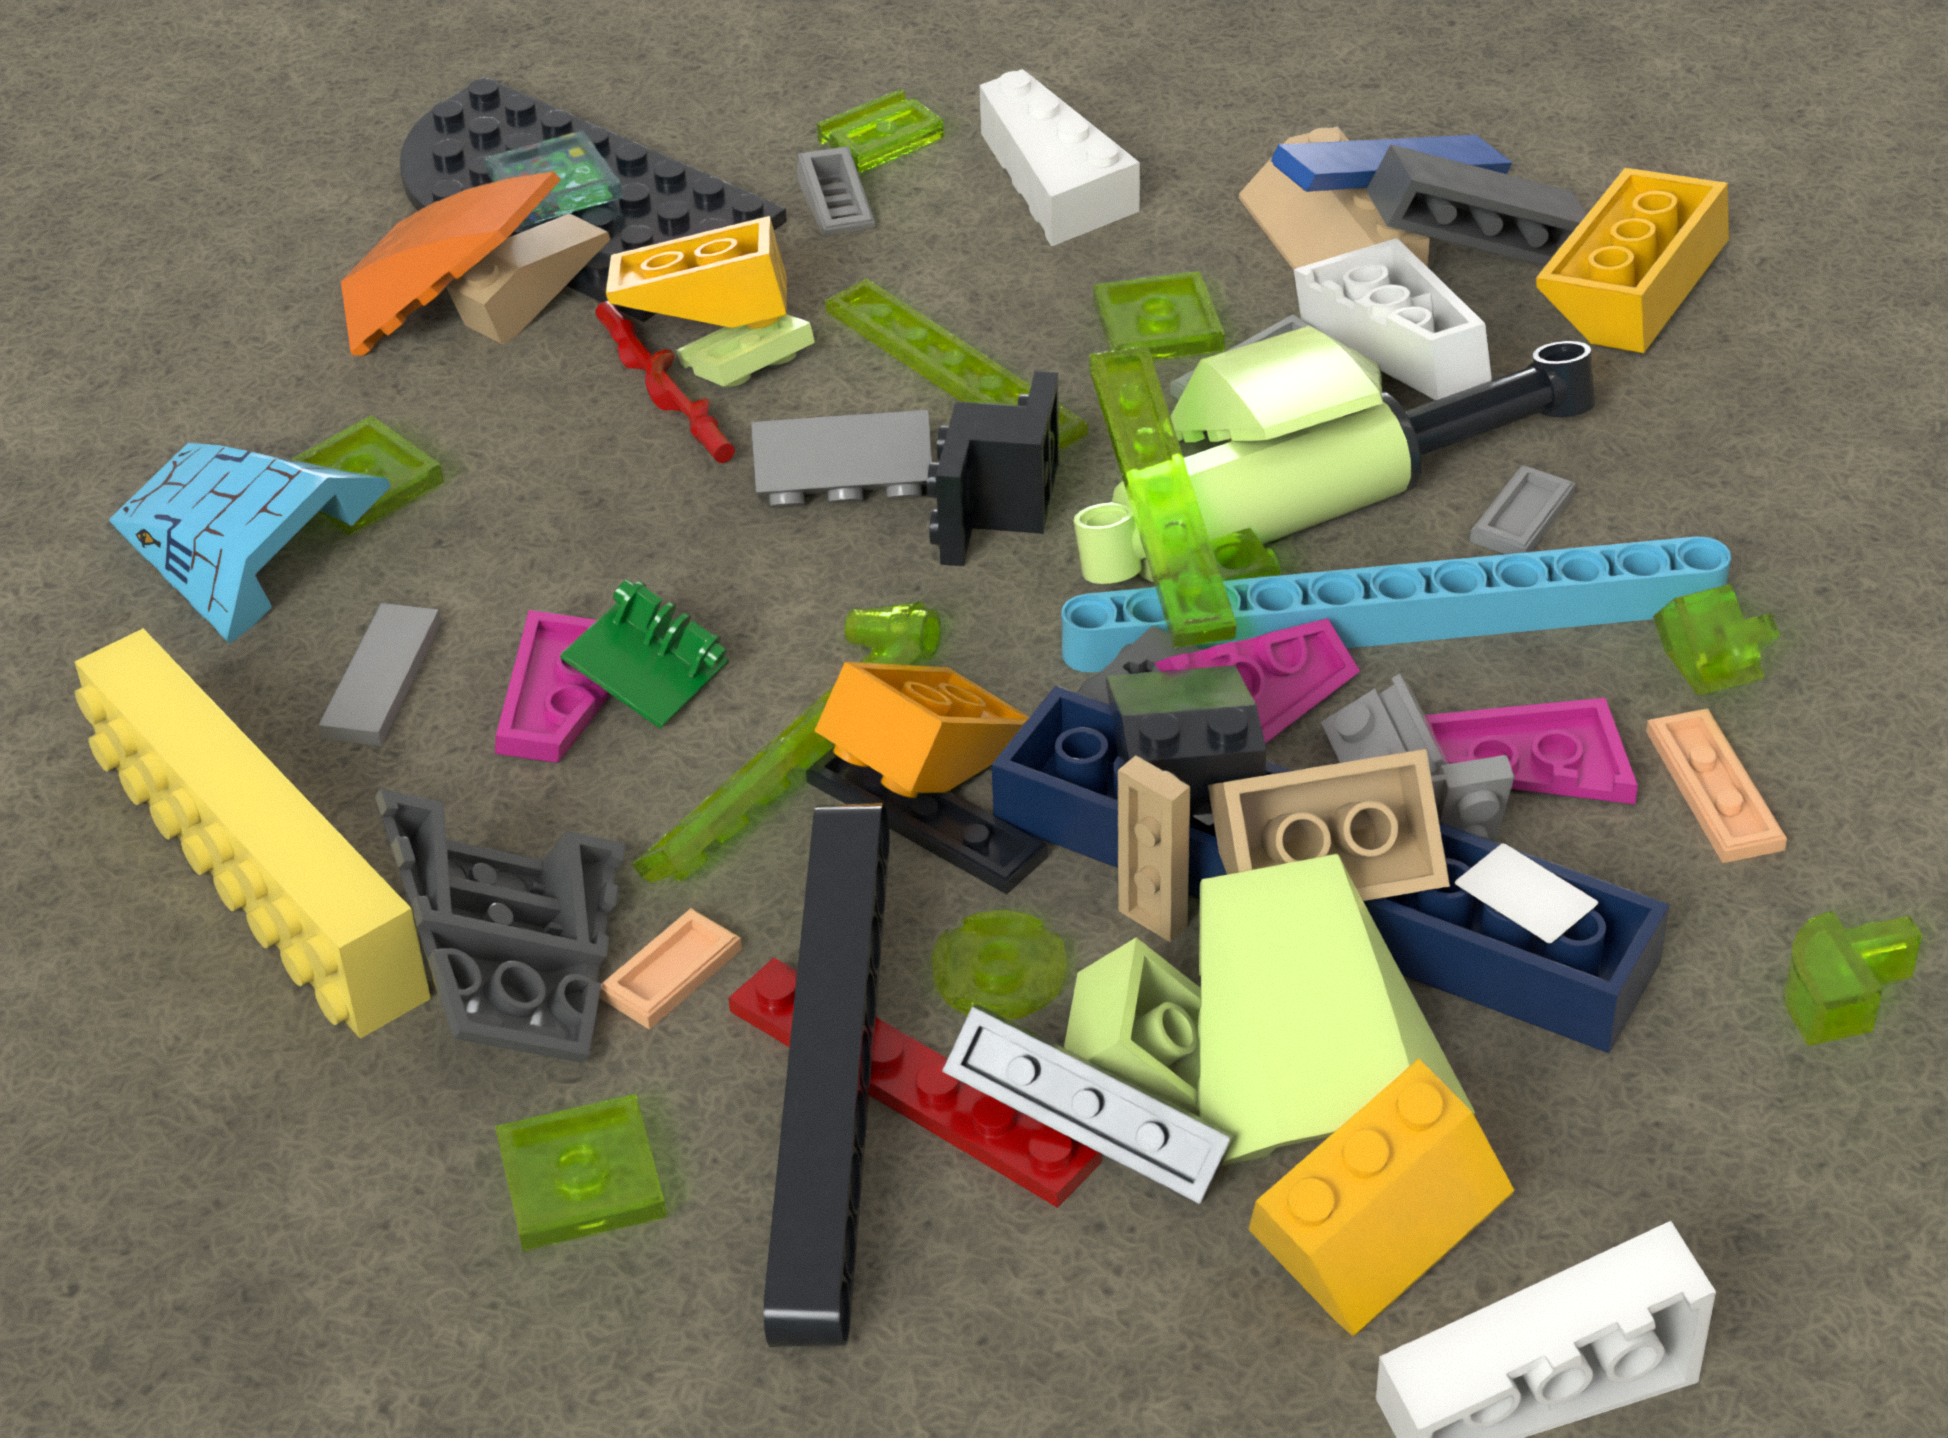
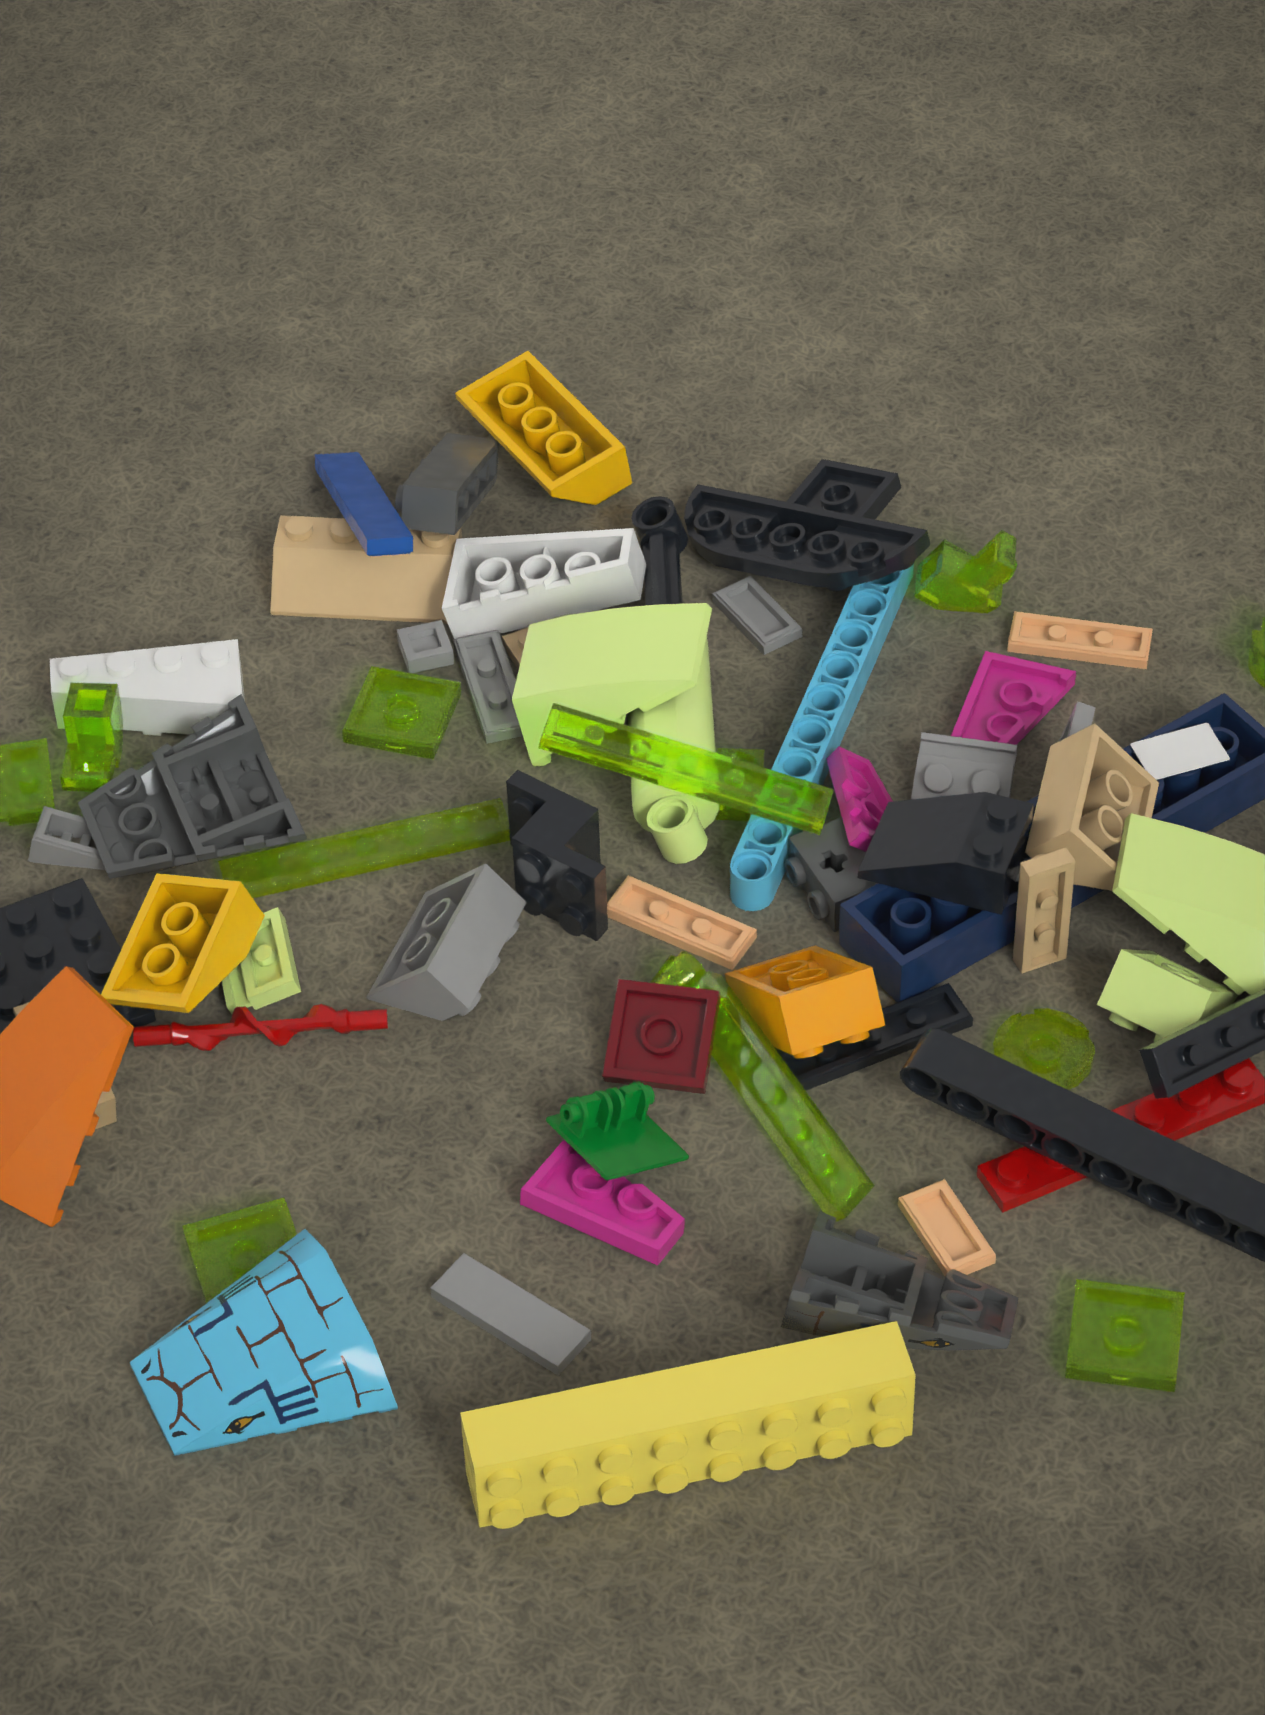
camera: 65 degrees left, 5 degrees up
(803, 639) = (661, 1036): none -> dark red plate
(929, 237) = (193, 801): none -> dark grey wedge
(962, 145) = (93, 736): none -> clear neon green brick
(1003, 612) = (680, 922): none -> light nougat tile
(1262, 299) = (425, 646): none -> light grey plate
(1643, 499) = (814, 538): none -> black plate

